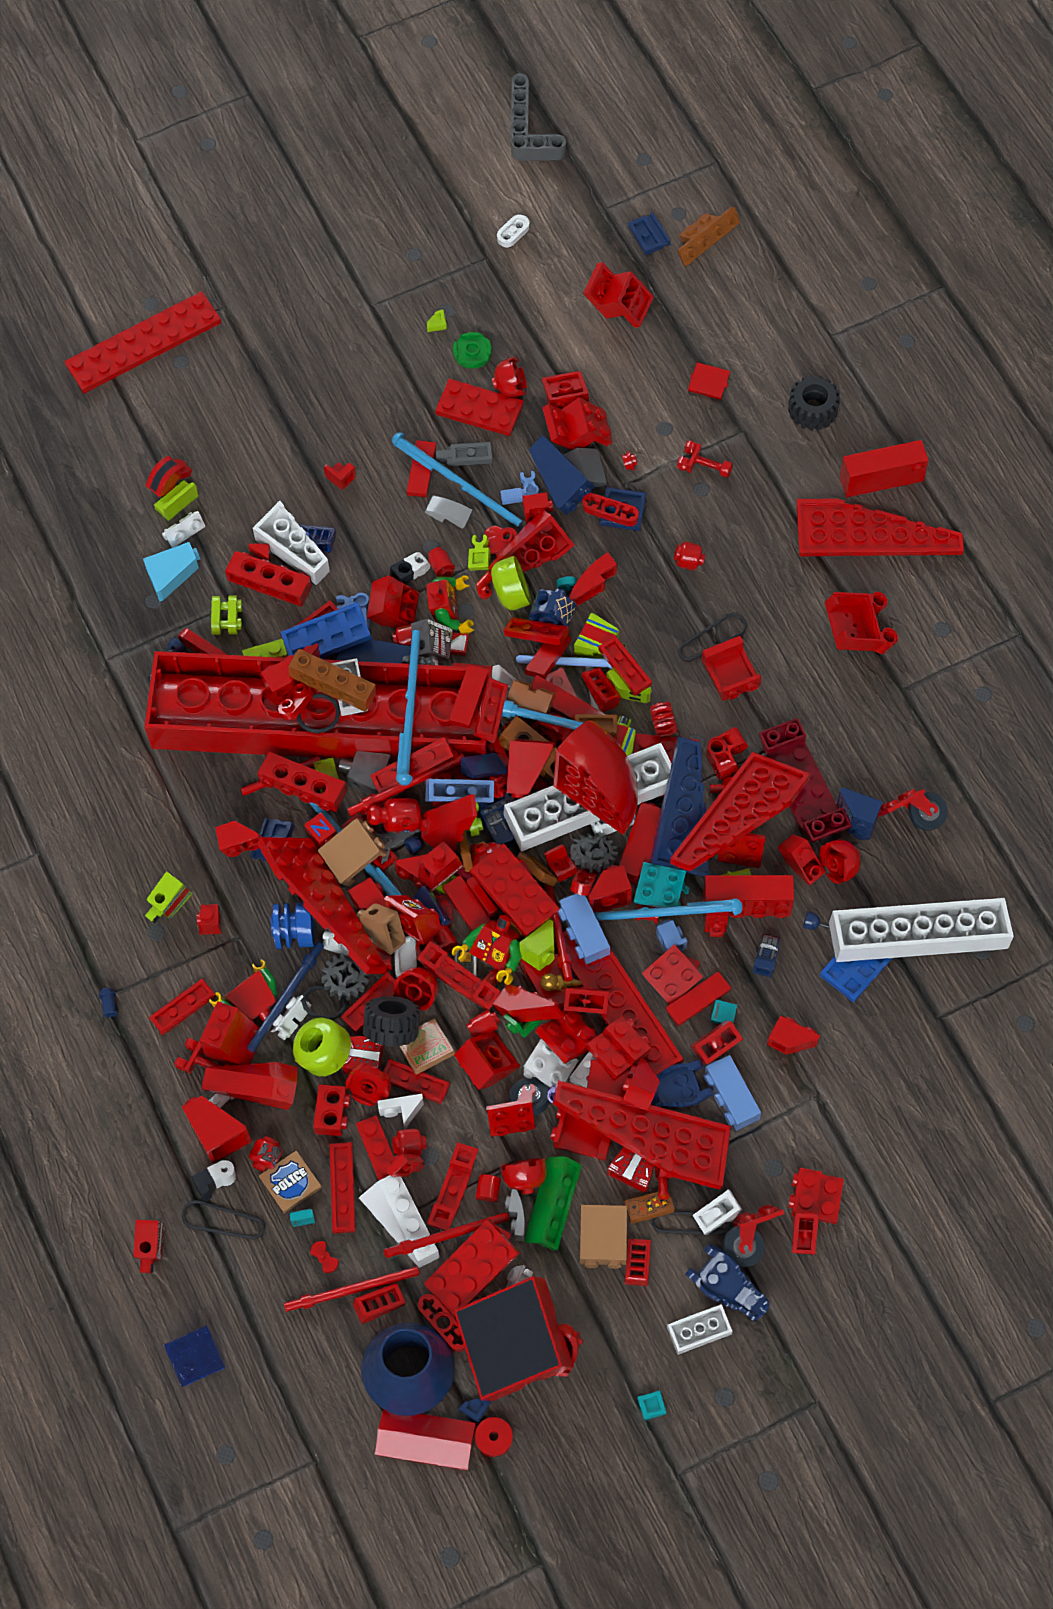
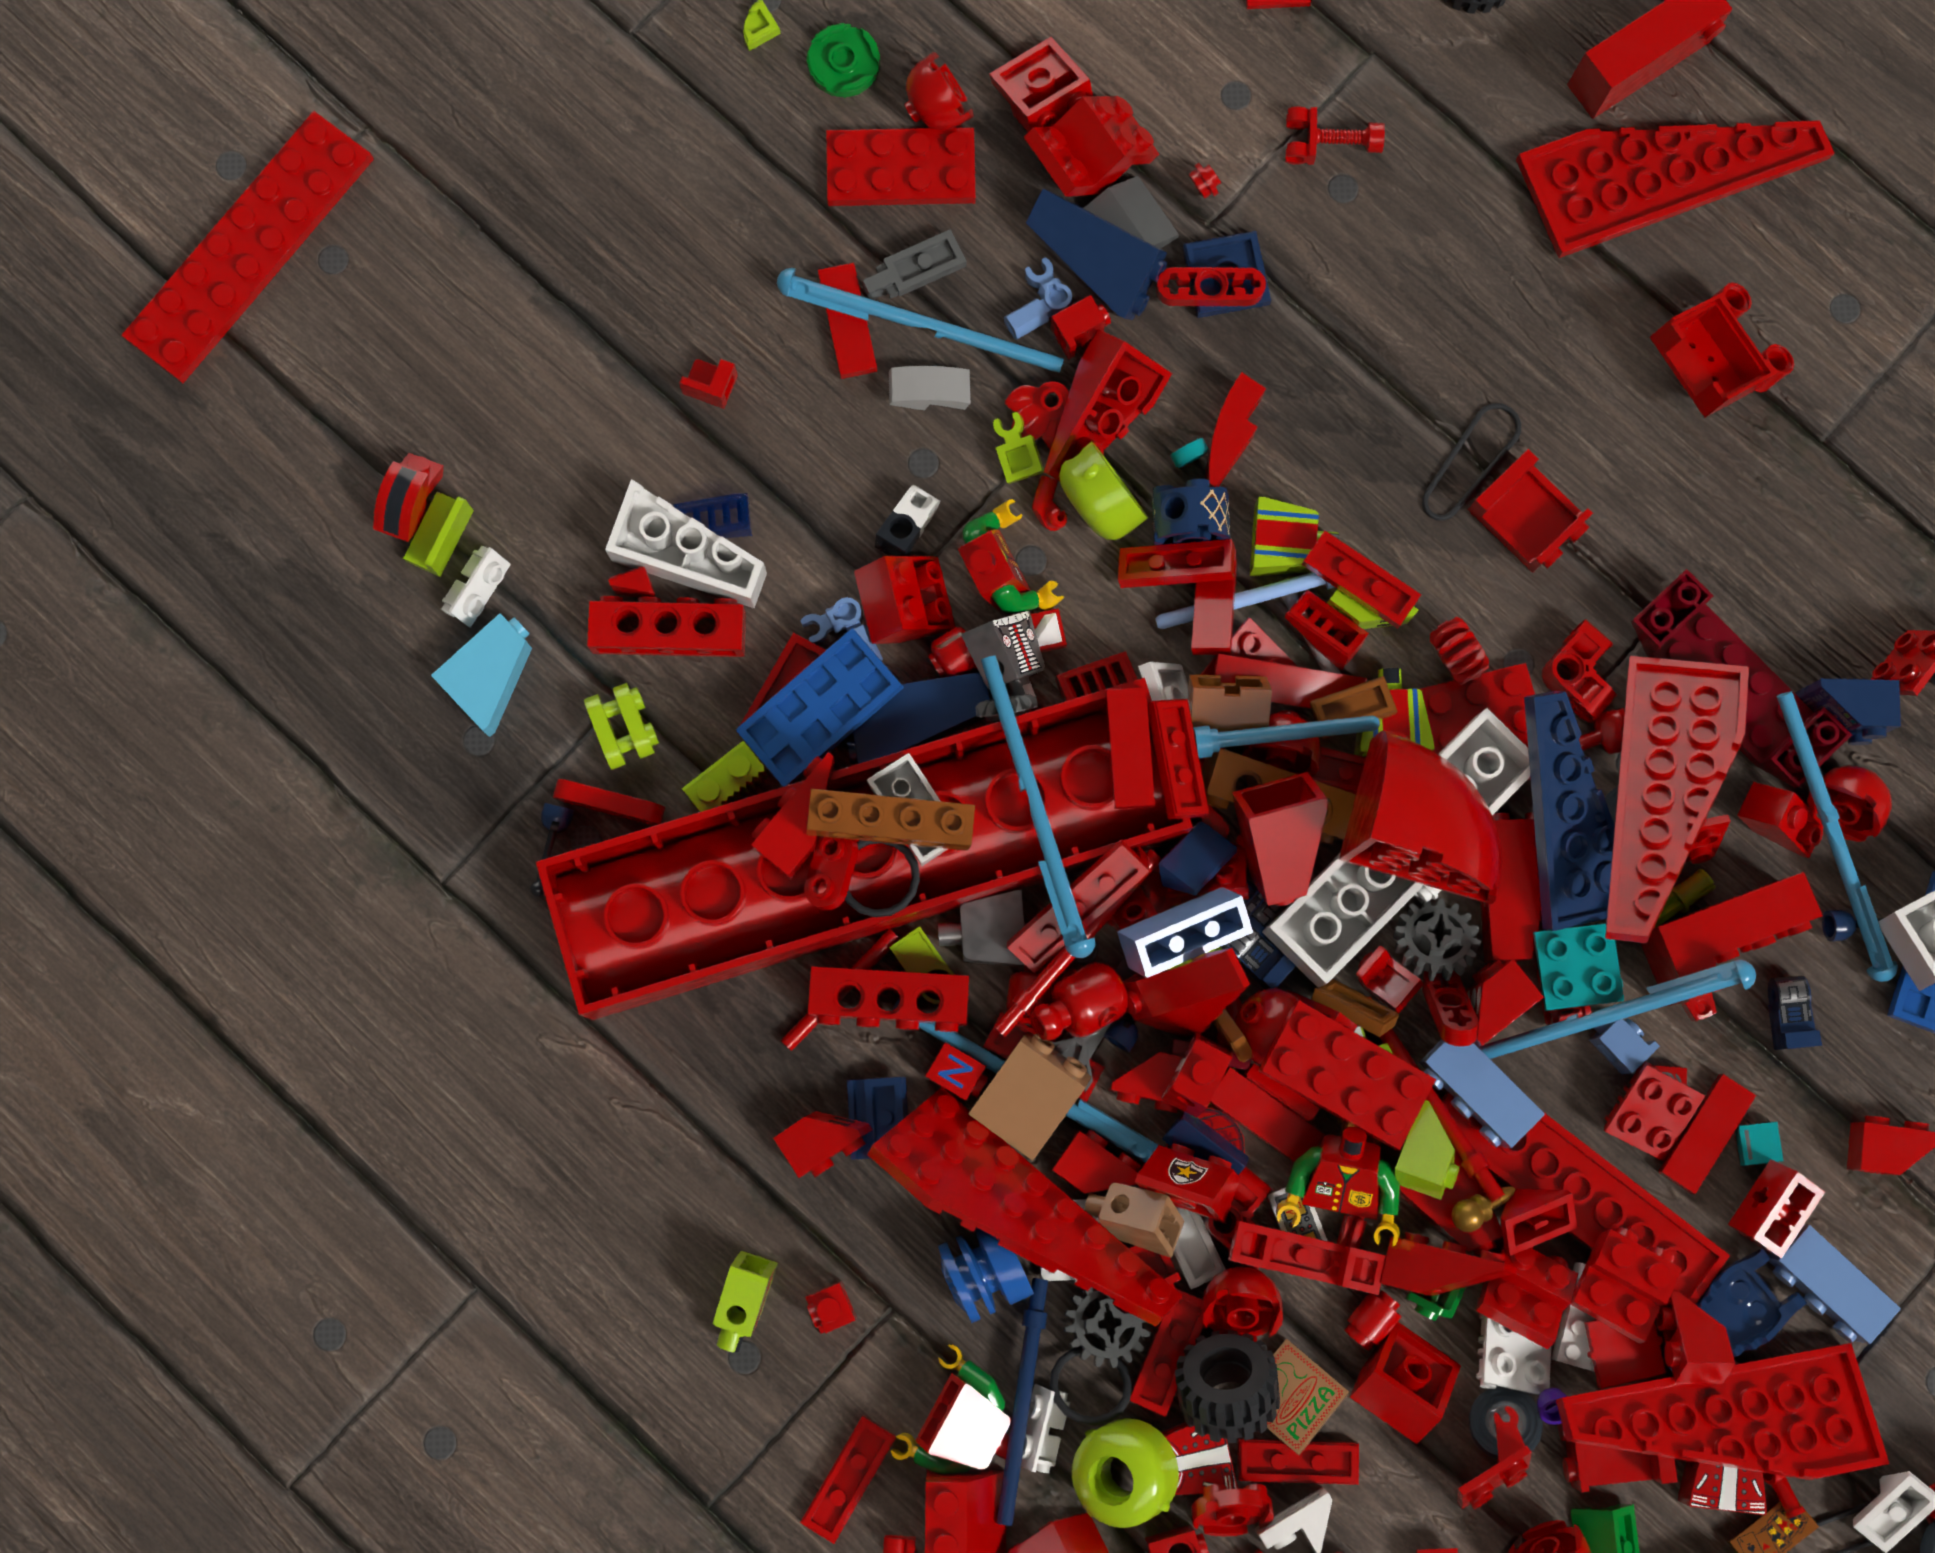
camera: 25 degrees left, 15 degrees up
(108, 1002) = (718, 1522): dark blue pin -> none
(441, 562) = (956, 490): red brick -> none
(689, 555) = (1377, 325): red head -> none
(825, 950) = (1883, 966): none -> dark azure bar

